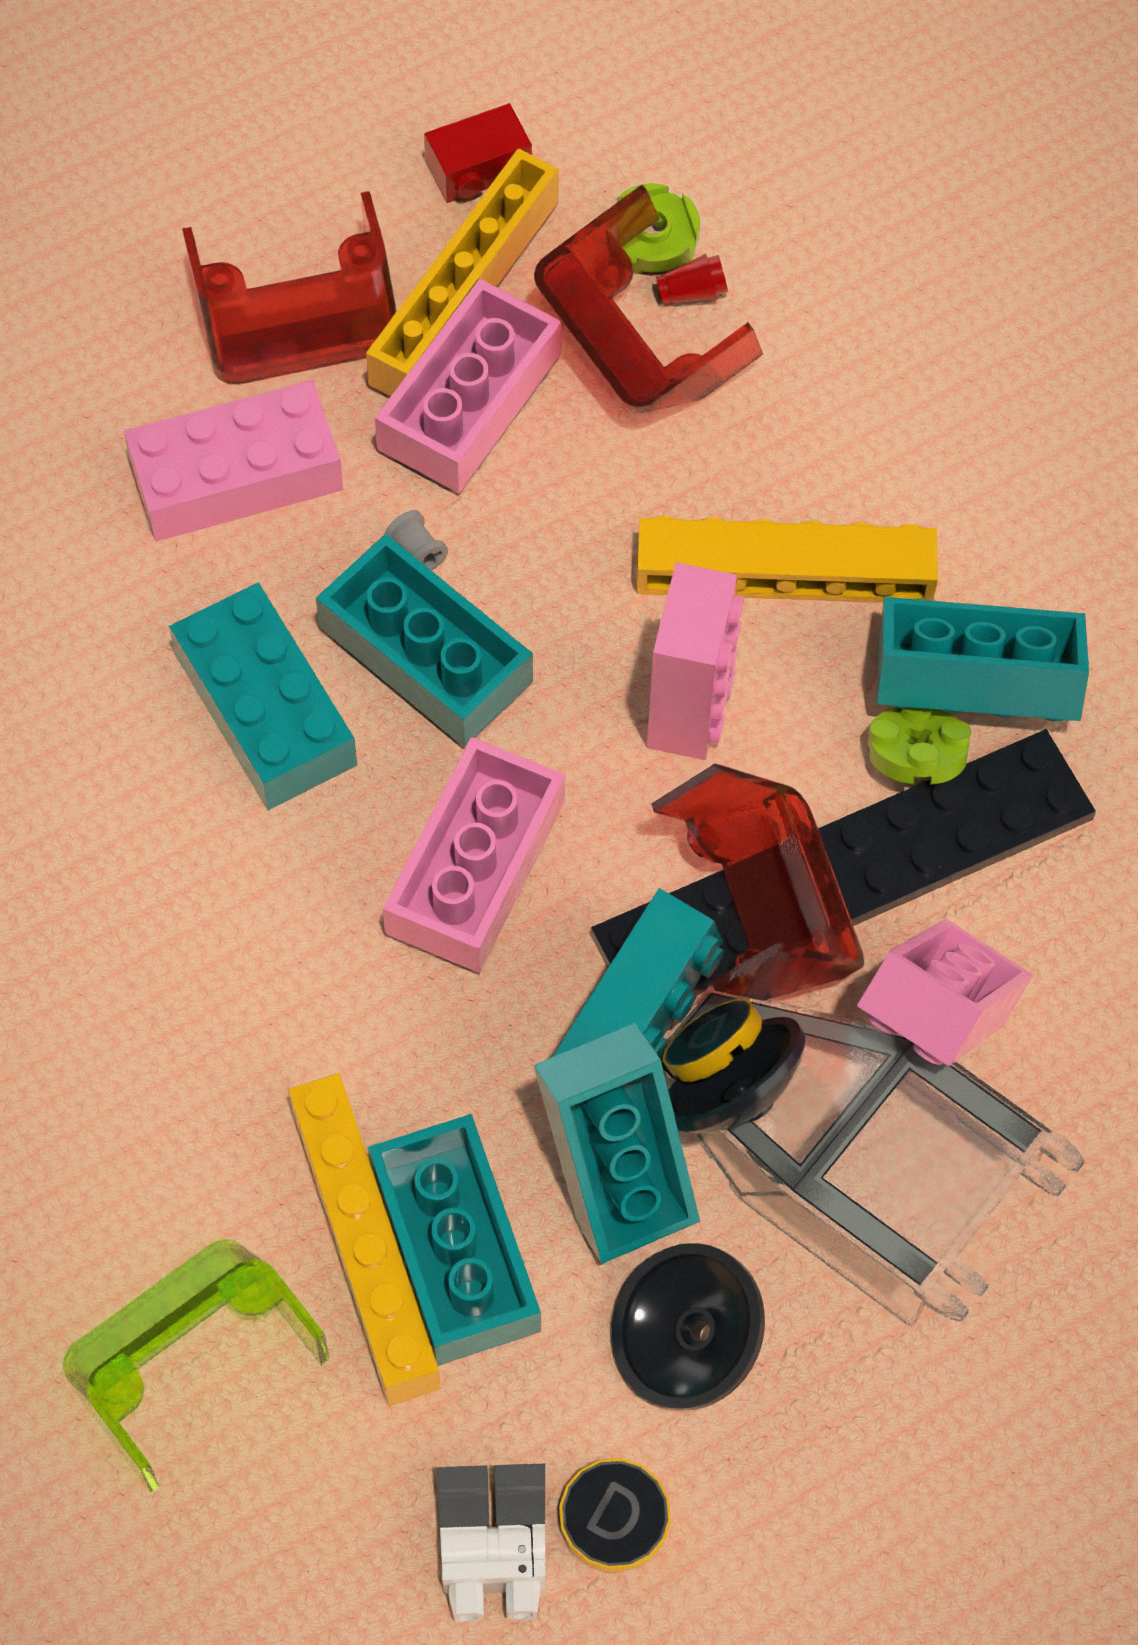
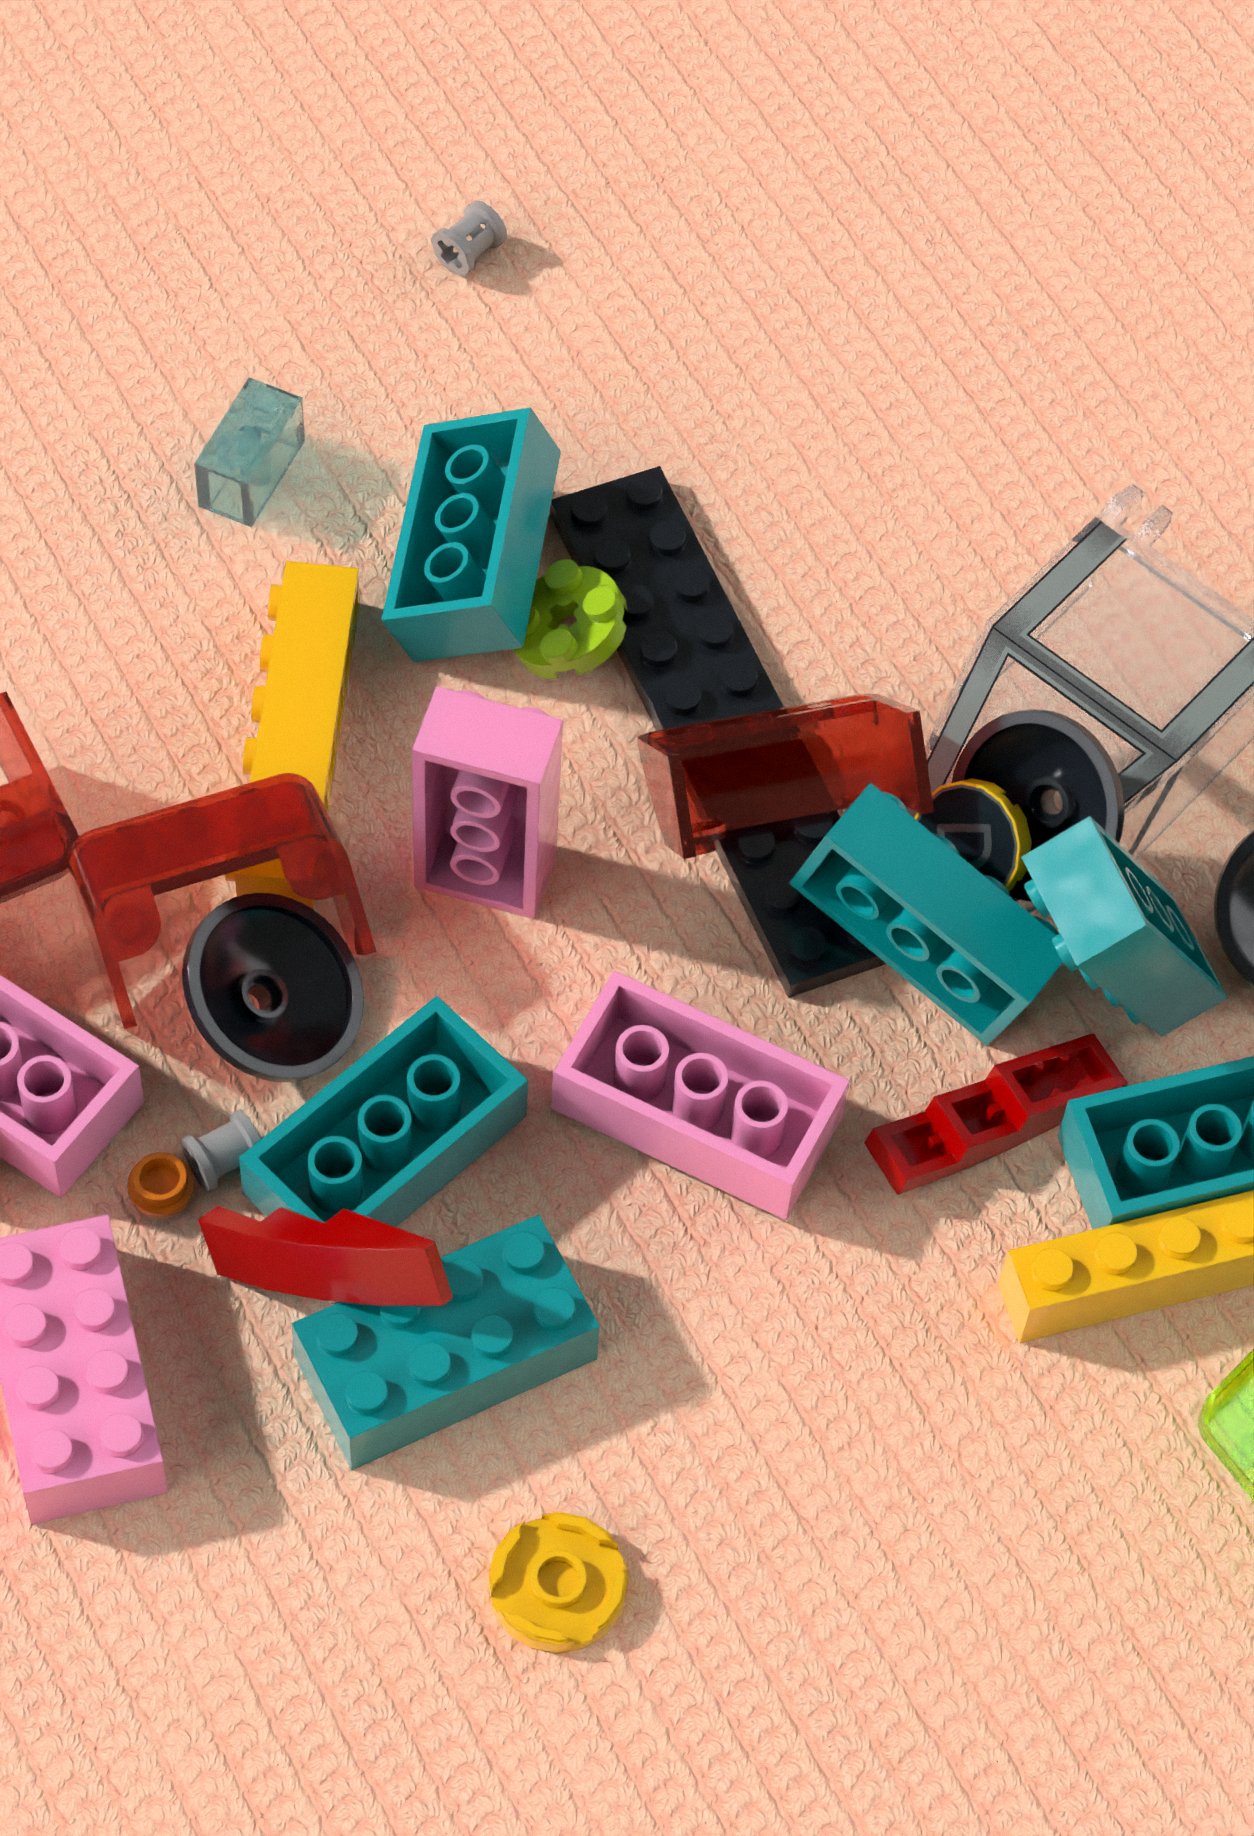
camera: 90 degrees left, 5 degrees down
(86, 789) = (558, 1582): none -> yellow tile
(307, 596) = (334, 1261): none -> red slope
(386, 505) = (160, 1185): none -> orange plate
(487, 1086) = (993, 1115): none -> red slope
(508, 544) = (296, 972): none -> black dish
(645, 483) = (134, 859): none -> clear red windscreen
(944, 992) = (933, 590): bright pink brick -> none
(1053, 502) = (250, 452): none -> clear light blue brick

